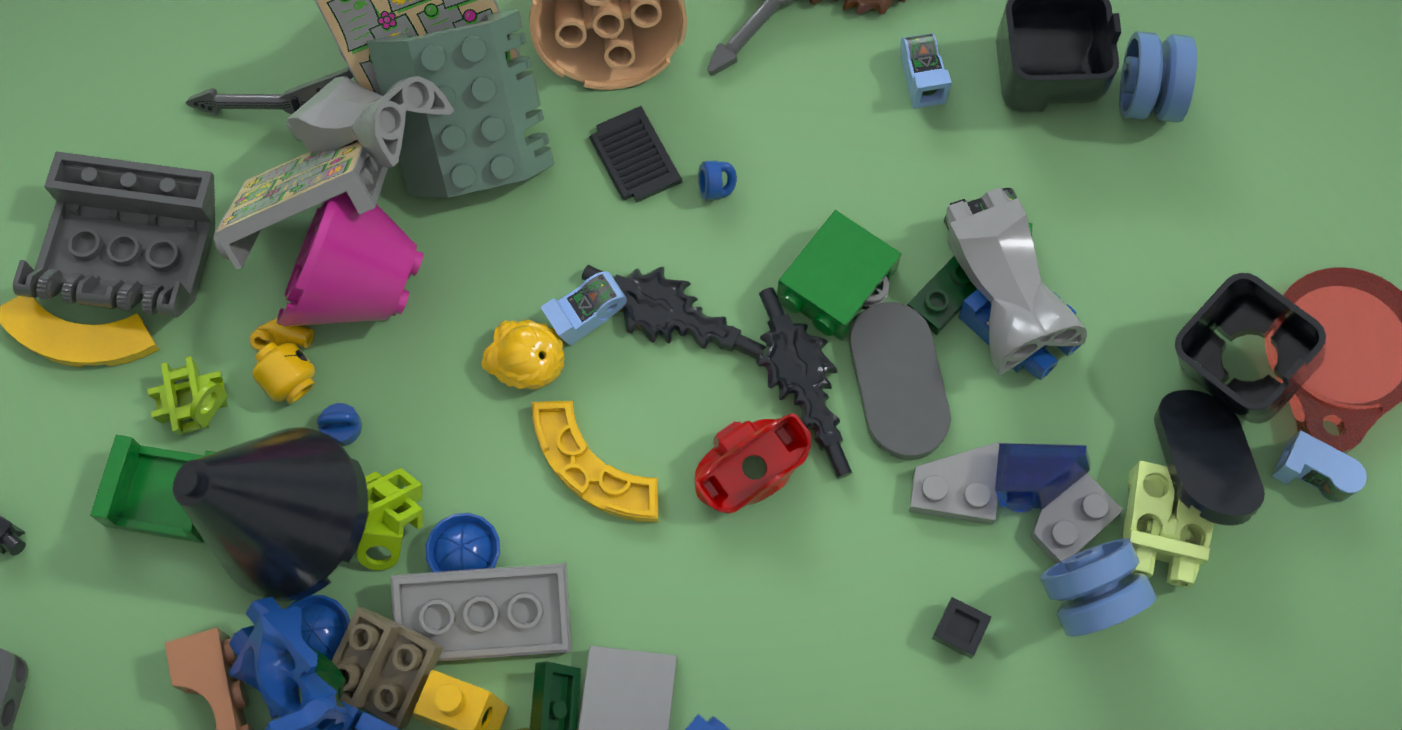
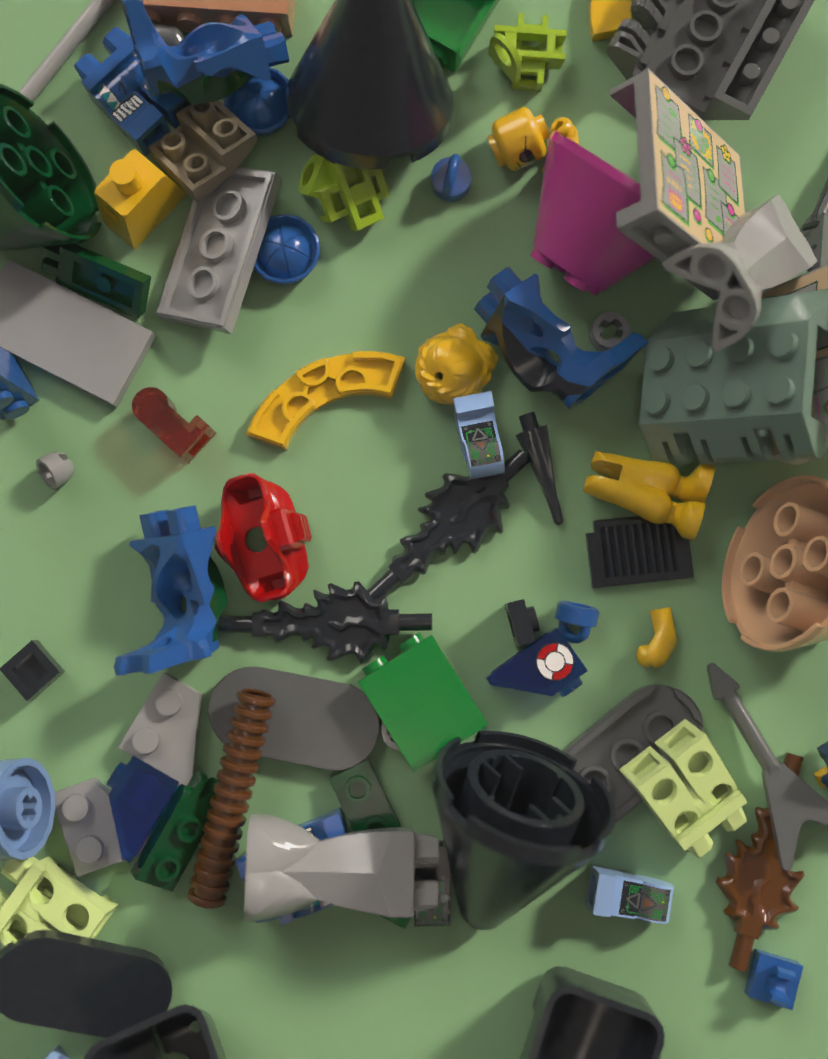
camera: 115 degrees right, 15 degrees up
(438, 229) = (605, 320): none -> light grey bush
(471, 293) = (527, 332): none -> blue hips
(571, 263) = (536, 446): none -> black piece
(580, 160) = (647, 490): none -> yellow piece
(671, 605) = (160, 416): none -> clear red leg
(703, 110) = (662, 642): none -> yellow arm
(736, 220) = (522, 621): none -> black plate
(763, 687) = (55, 469): none -> light grey hinge
(767, 193) = (541, 667): none -> clear blue slope
(805, 507) = (178, 565): none -> blue hips
(812, 110) = (626, 733): none -> dark grey tile
(818, 51) = (697, 803): none -> yellowish green hips
(906, 153) = (514, 821): none -> black cone
(989, 398) = (230, 799): none -> reddish brown piece
(1040, 430) = (176, 834): none -> dark green hinge

